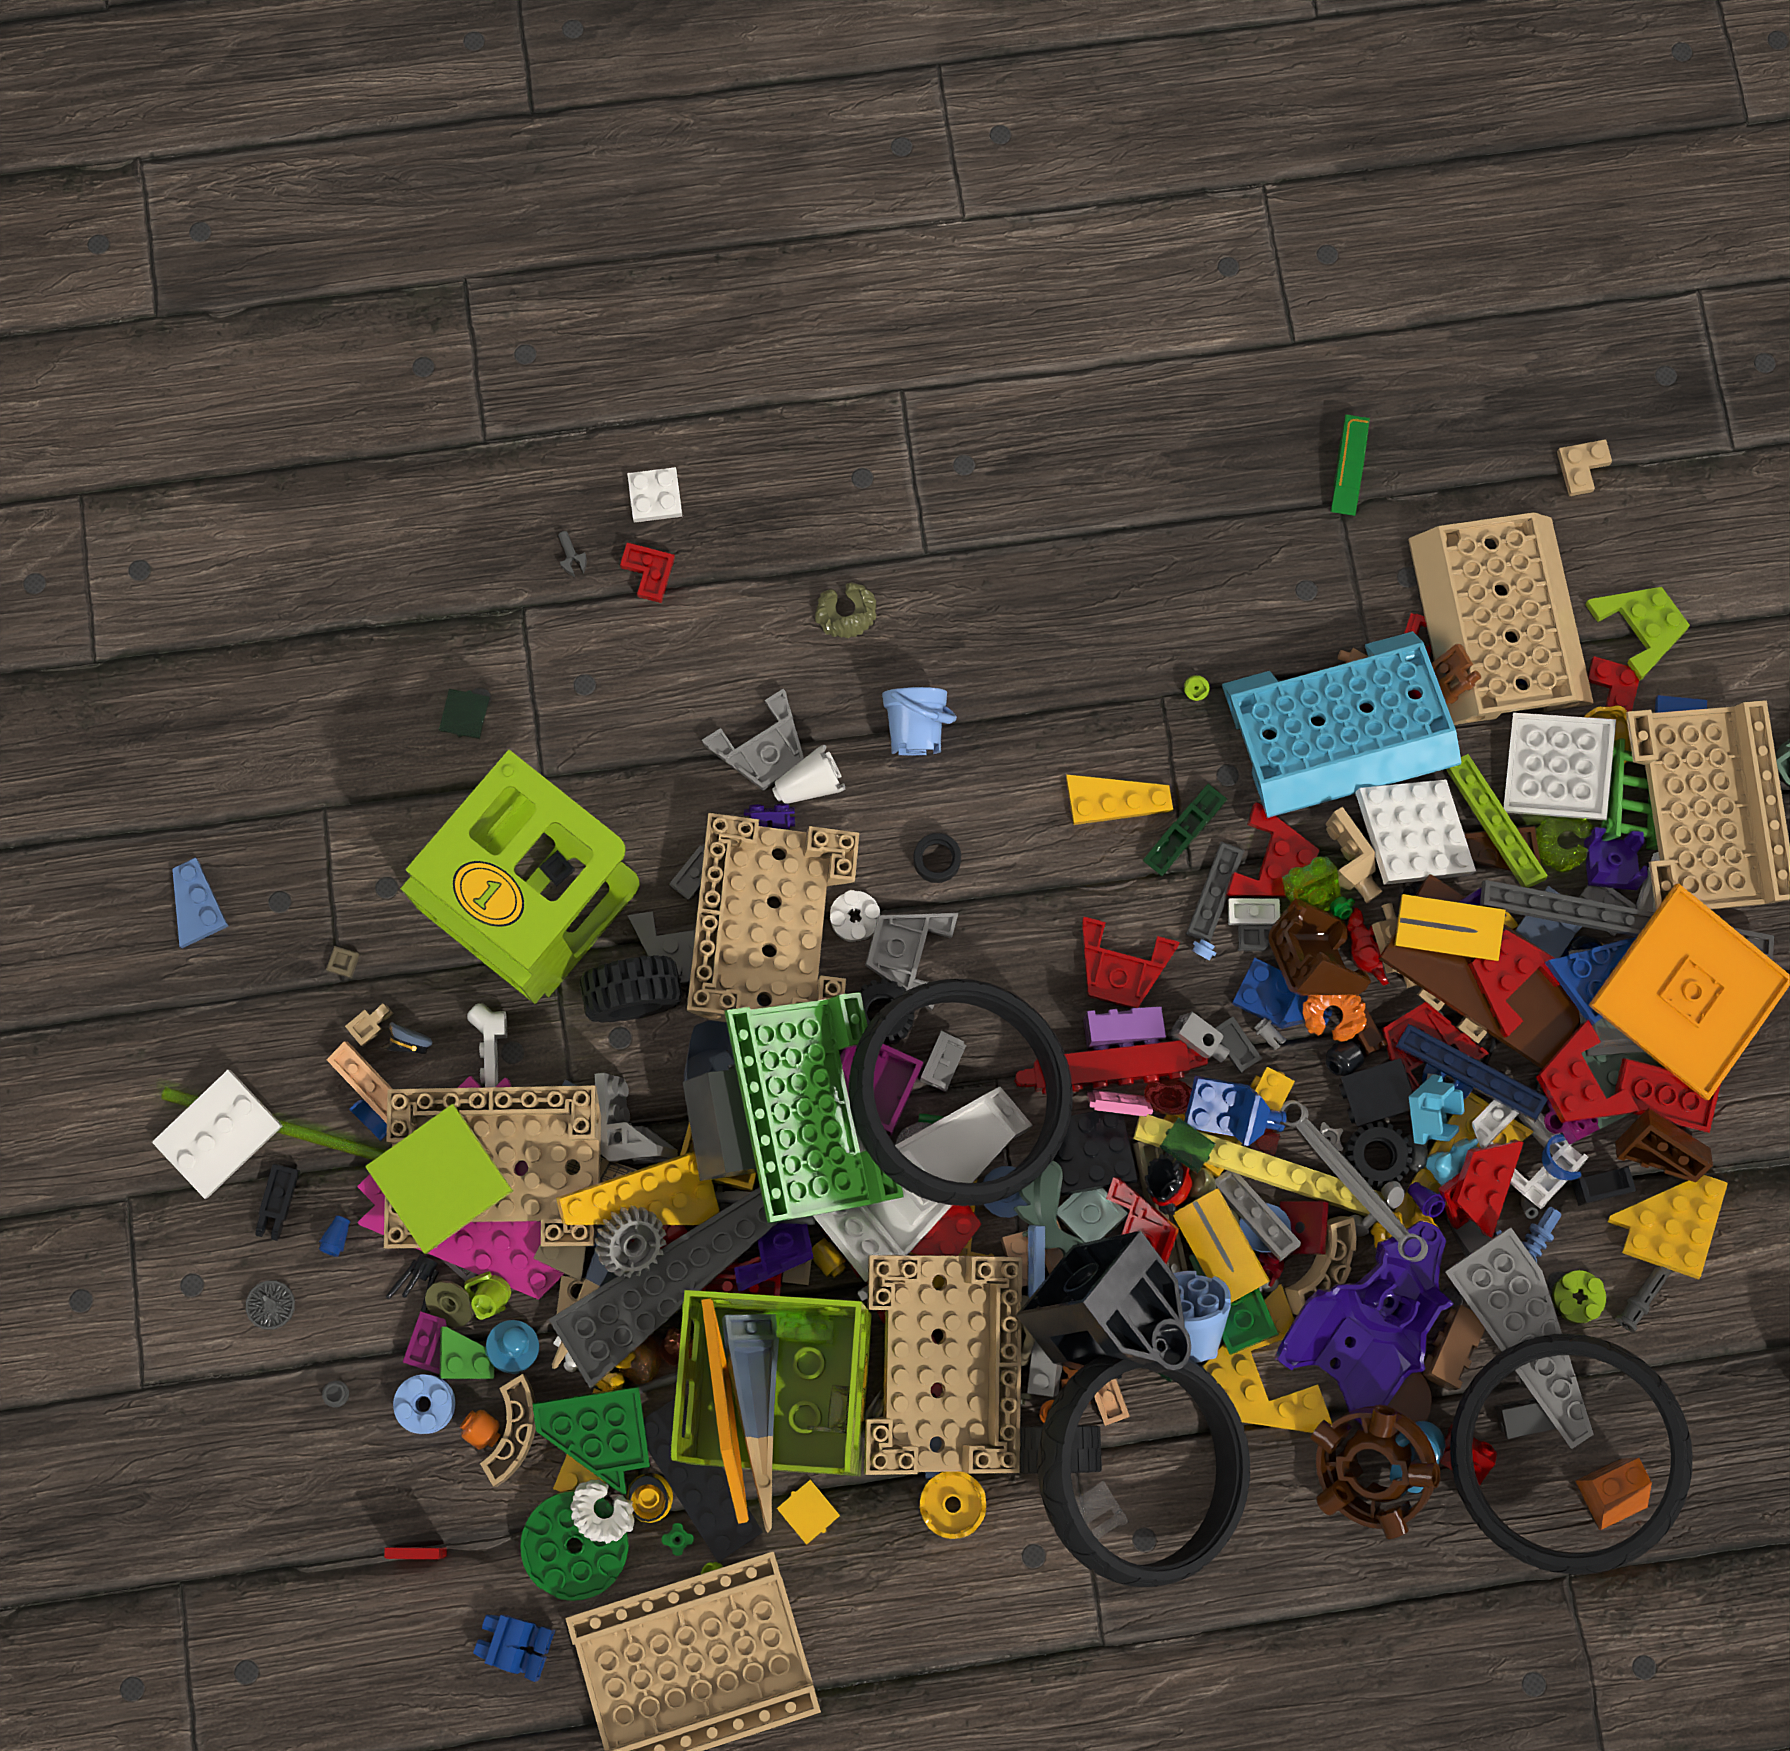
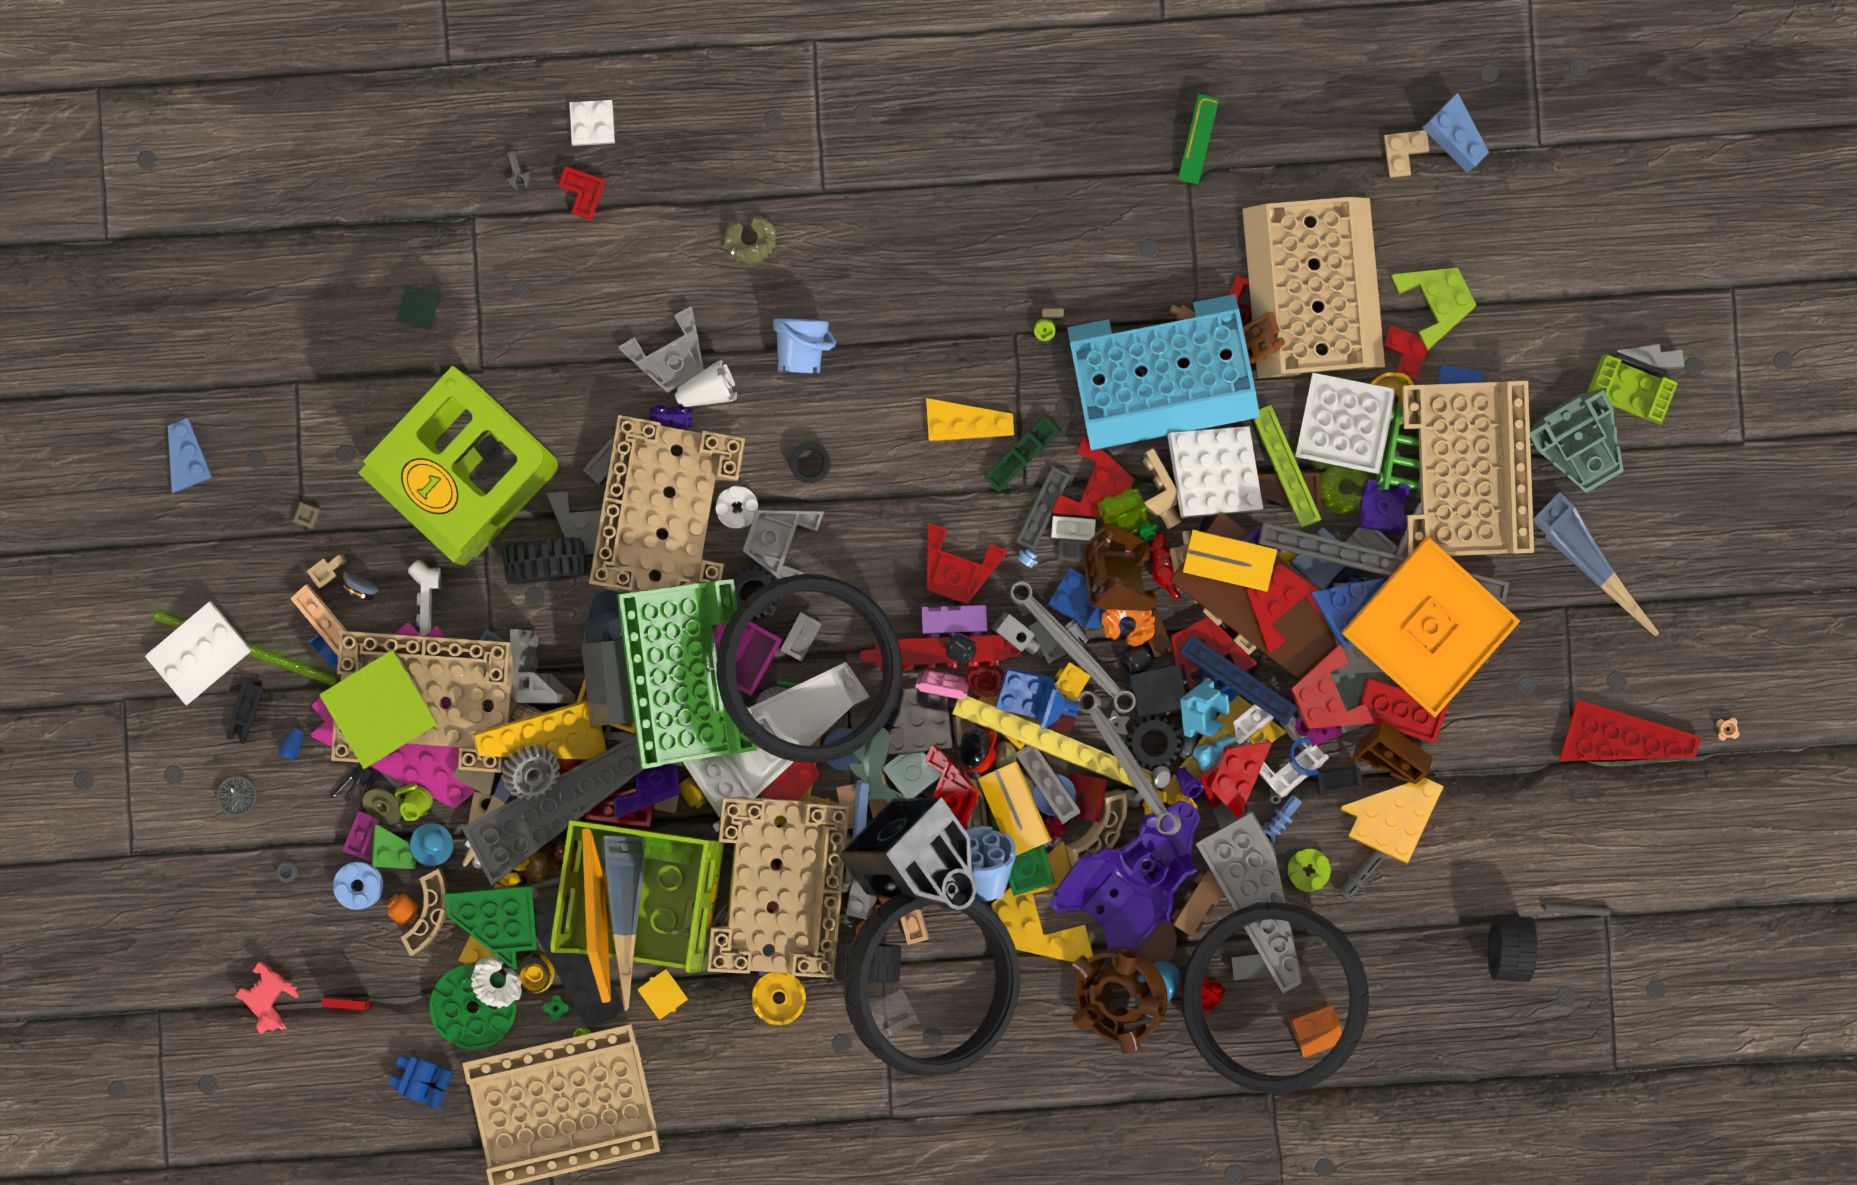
camera: 10 degrees right, 10 degrees up
(312, 1551) = (263, 996): none -> coral animal
(1137, 1058) = (960, 648): none -> black head
(1187, 1145) = (994, 724): clear green piece -> none
(1204, 668) = (1053, 313): none -> dark tan tile
(1269, 1050) = (1072, 647): none -> light grey piece
(1643, 440) = (1457, 134): none -> medium blue wedge

